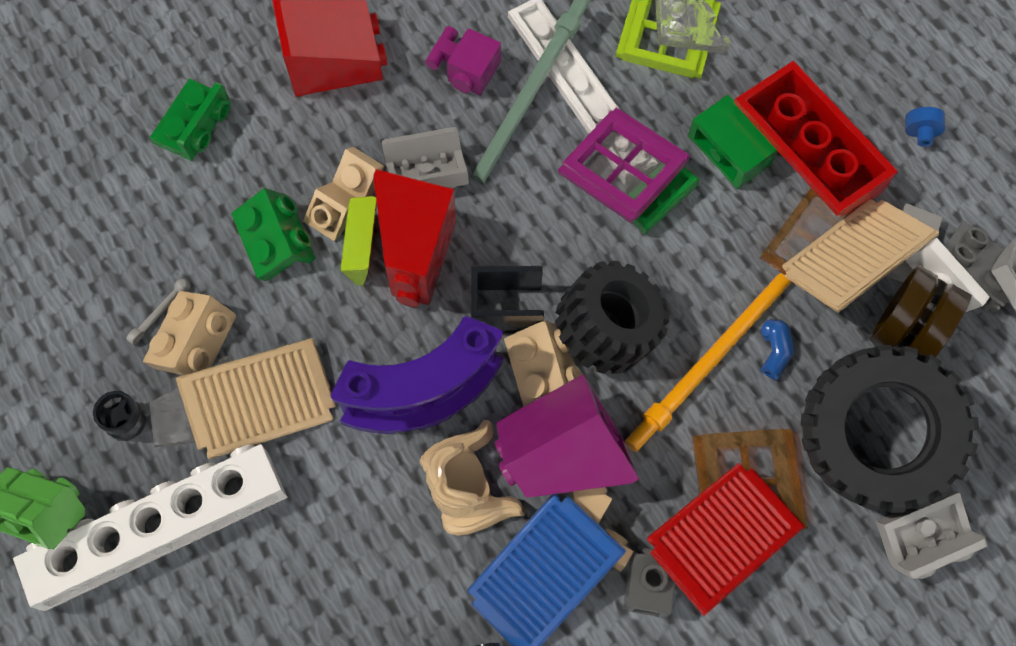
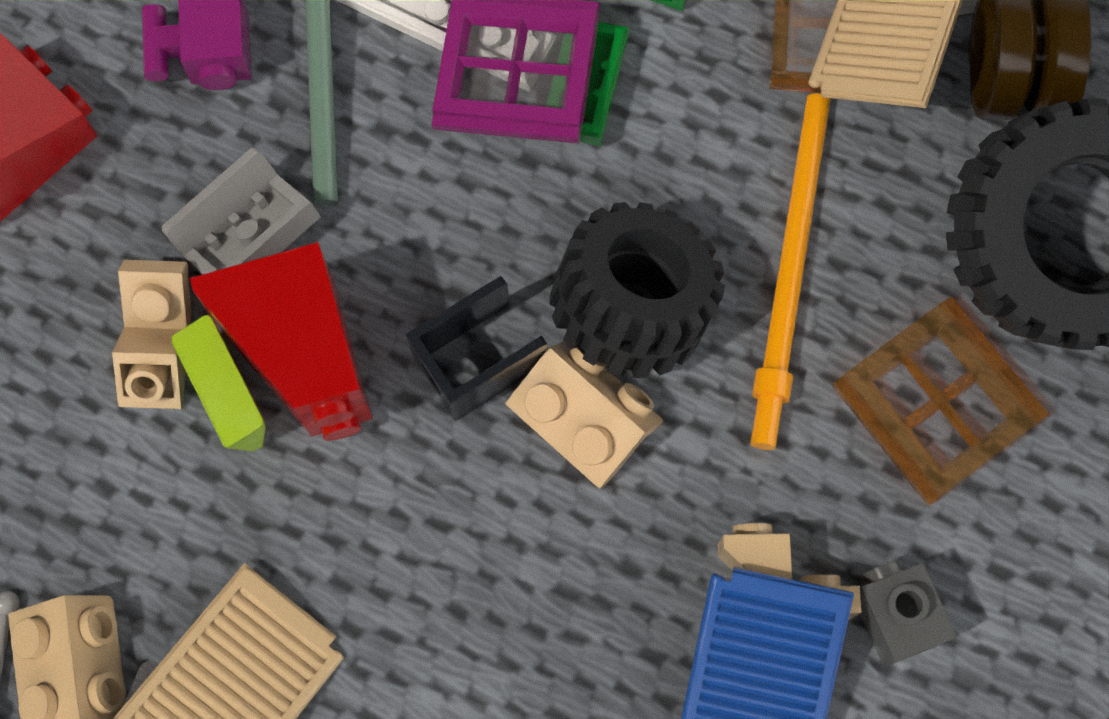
camera: 30 degrees left, 5 degrees up
(272, 233) = (87, 451): green bracket -> none
(423, 389) = (452, 545): dark purple fence -> none
(460, 484) = (575, 637): tan hair -> none
(563, 444) = (681, 502): magenta slope -> none
(723, 536) = (958, 494): red window -> none
(782, 347) = (872, 192): blue arm -> none

